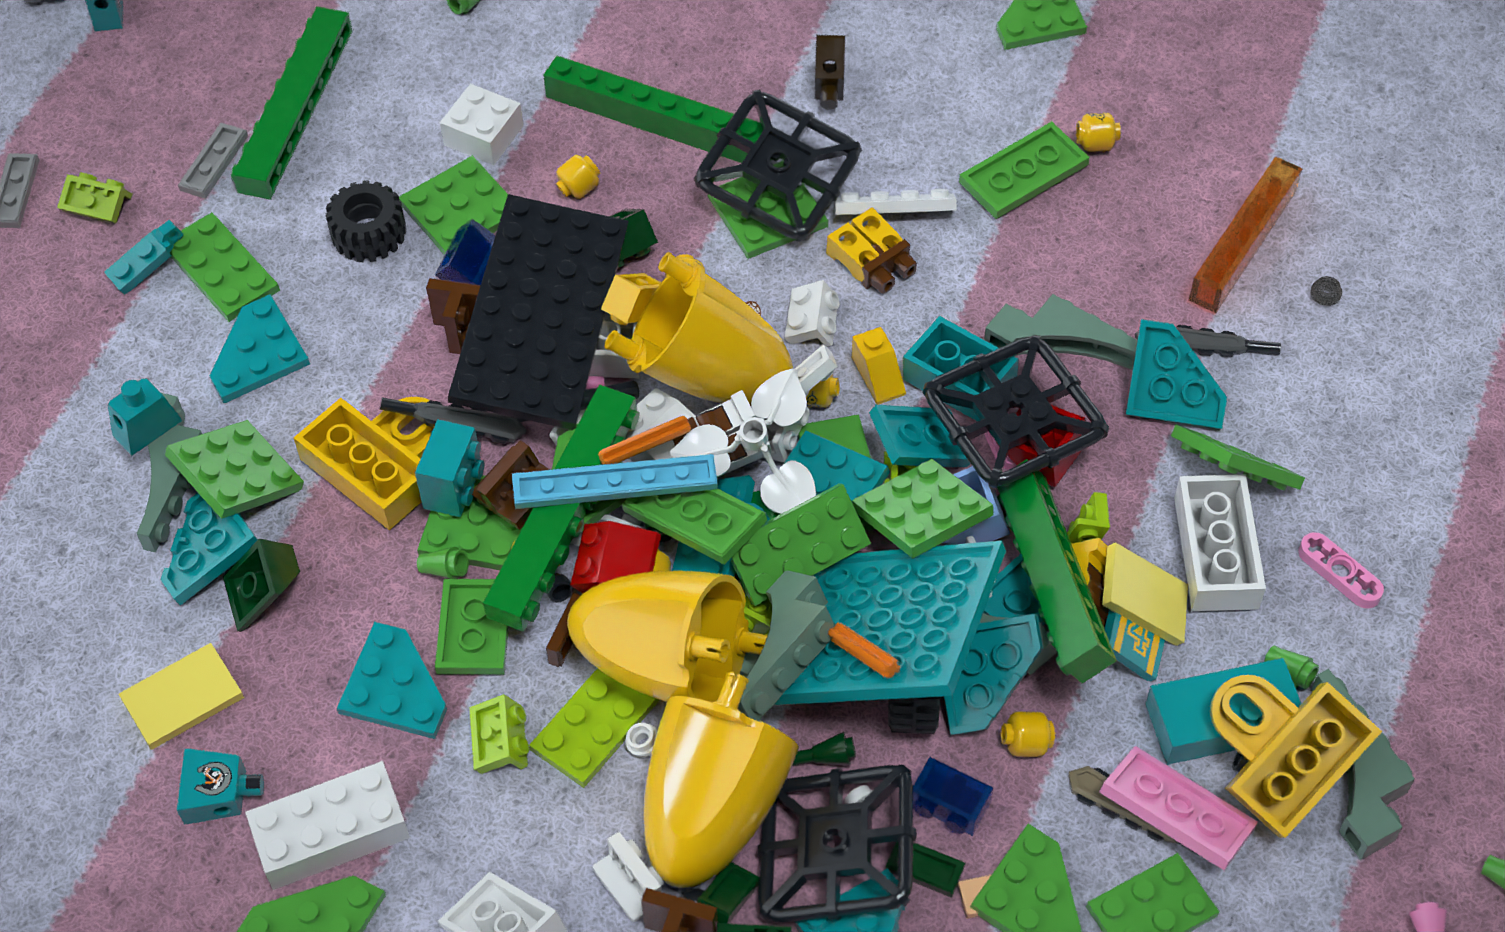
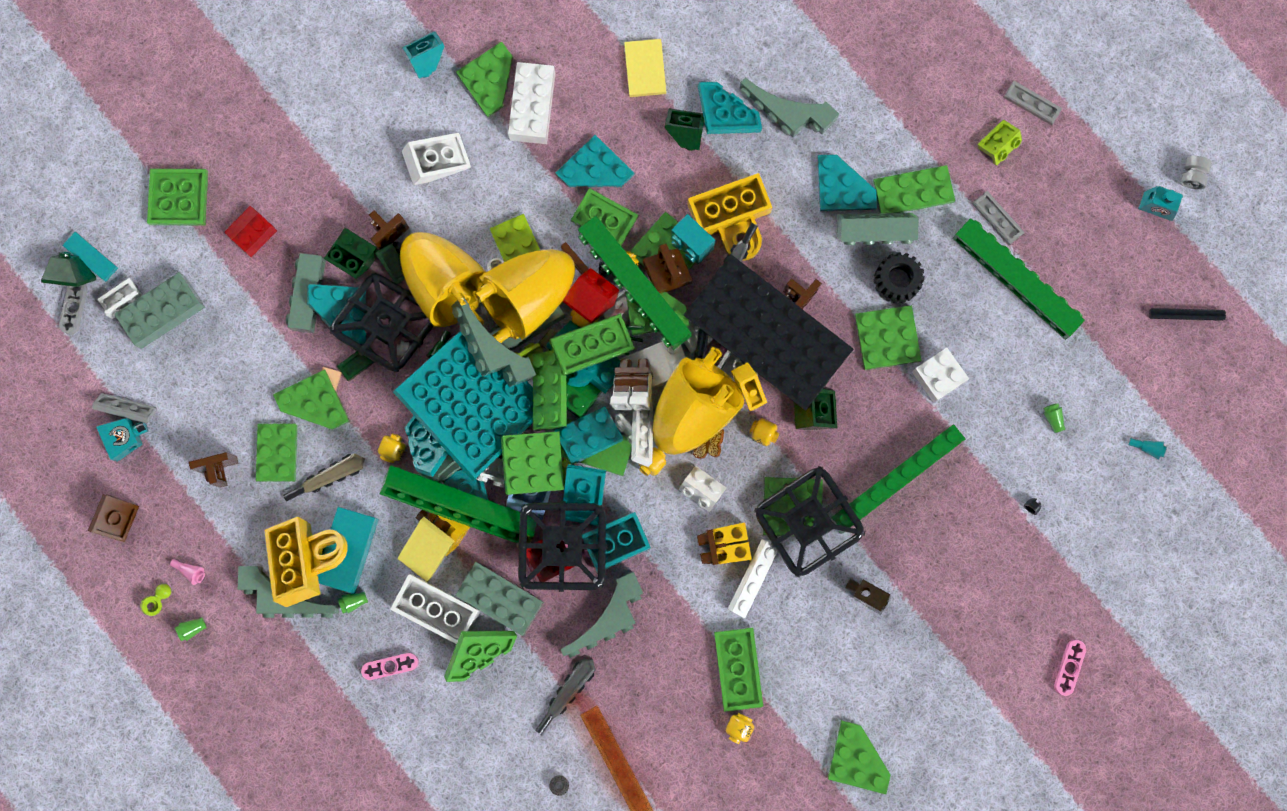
camera: 120 degrees right, 25 degrees up
(140, 415) = (812, 100): teal torso -> none
(144, 257) = (938, 150): teal hinge -> none
(214, 786) = (583, 62): teal torso -> none
(234, 468) = (761, 139): bright green plate -> none
(304, 268) = (877, 227): none -> sand green brick
(446, 563) = (646, 220): bright green cone -> none
(467, 254) = (841, 320): clear blue brick -> none
(498, 734) = (536, 202): lime bracket -> none
(577, 176) = (871, 410): yellow head -> none
(614, 481) = (626, 310): medium azure tile -> none
(626, 875) = (430, 223): white bracket -> none
(645, 441) = (642, 337): orange axle -> none
(776, 401) = (624, 369): white plant -> none
(864, 650) = (452, 373): orange axle -> none
(878, 365) = (645, 502): yellow slope -> none
(951, 797) = (380, 392): clear blue brick -> none
(1091, 521) = (478, 546): lime bracket -> none
(1134, 646) = (404, 526): teal tile -> none
(1142, 474) = (499, 598): none -> sand green brick
(1172, 380) = (542, 651): teal plate -> none
(1179, 807) = (313, 493): bright pink plate -> none

